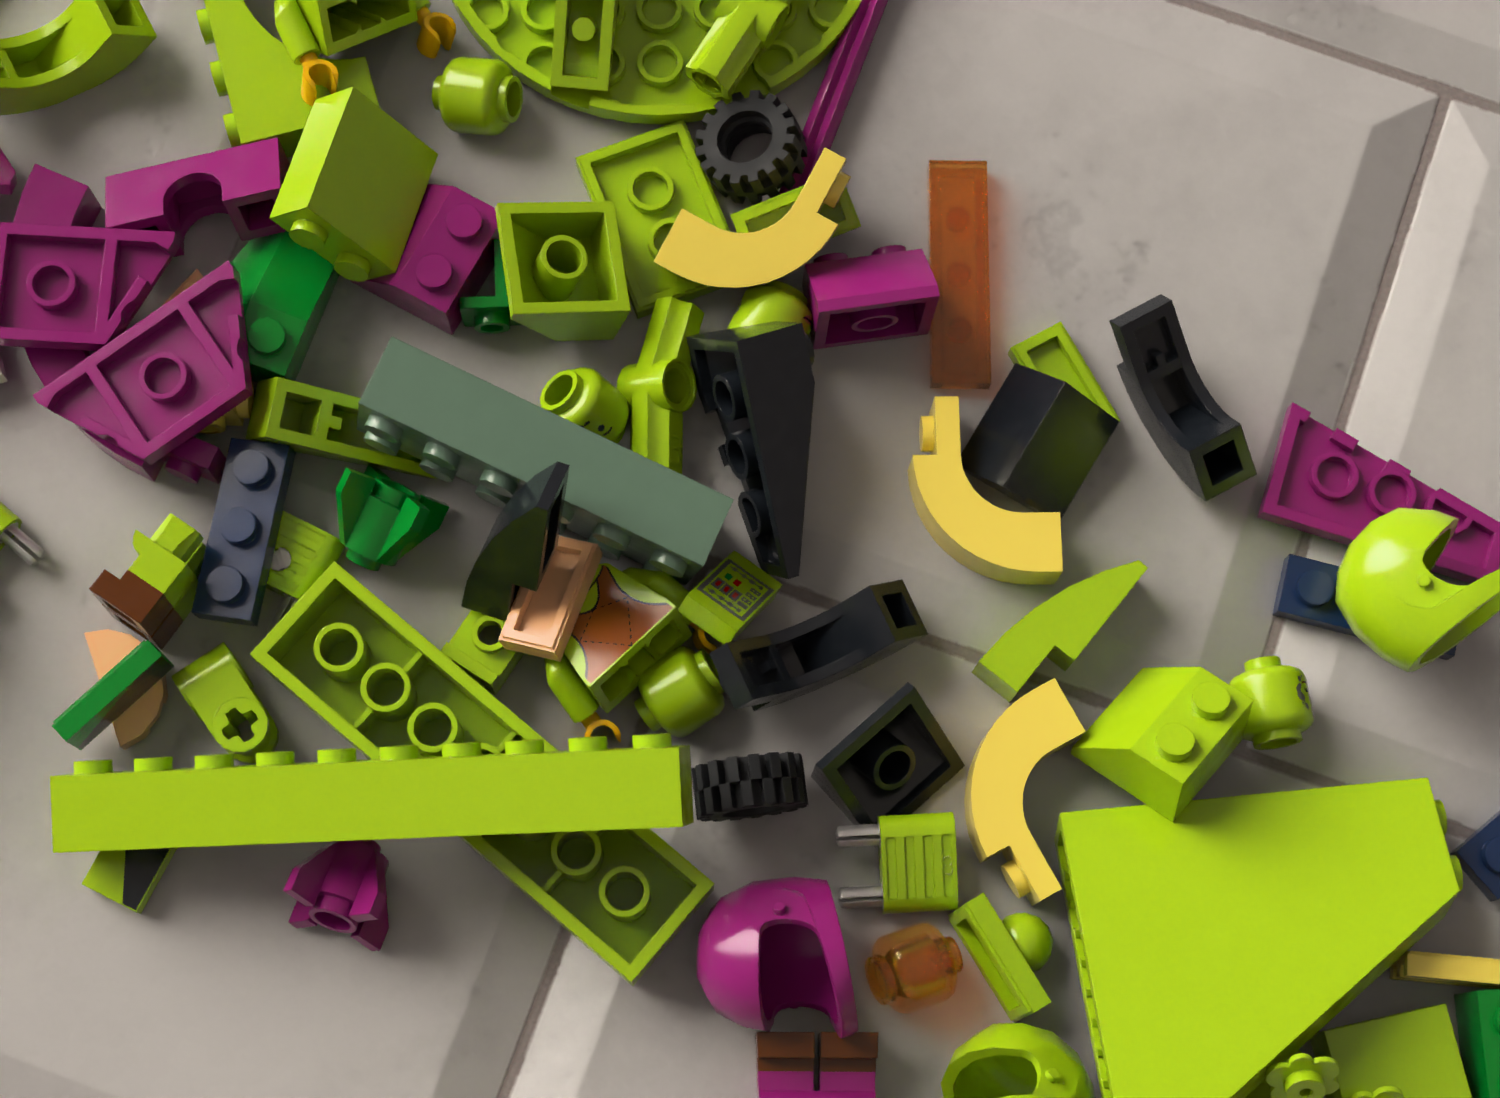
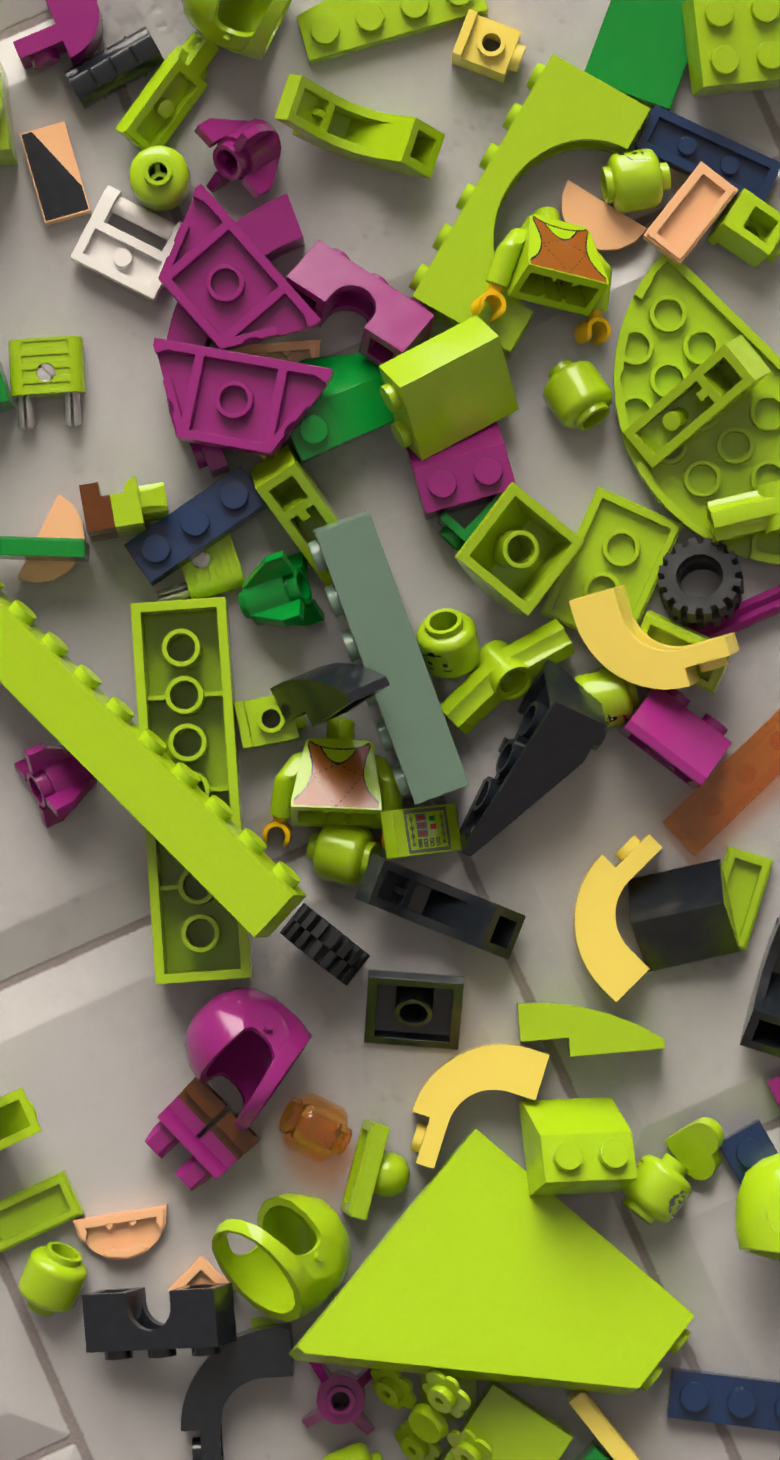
camera: 60 degrees right, 10 degrees up
(225, 698) = (96, 604): lime piece -> none
(545, 619) = (306, 745): light nougat tile -> none
(914, 863) = (373, 1073): lime piece -> none
(1264, 629) = (698, 1147): none -> lime tile

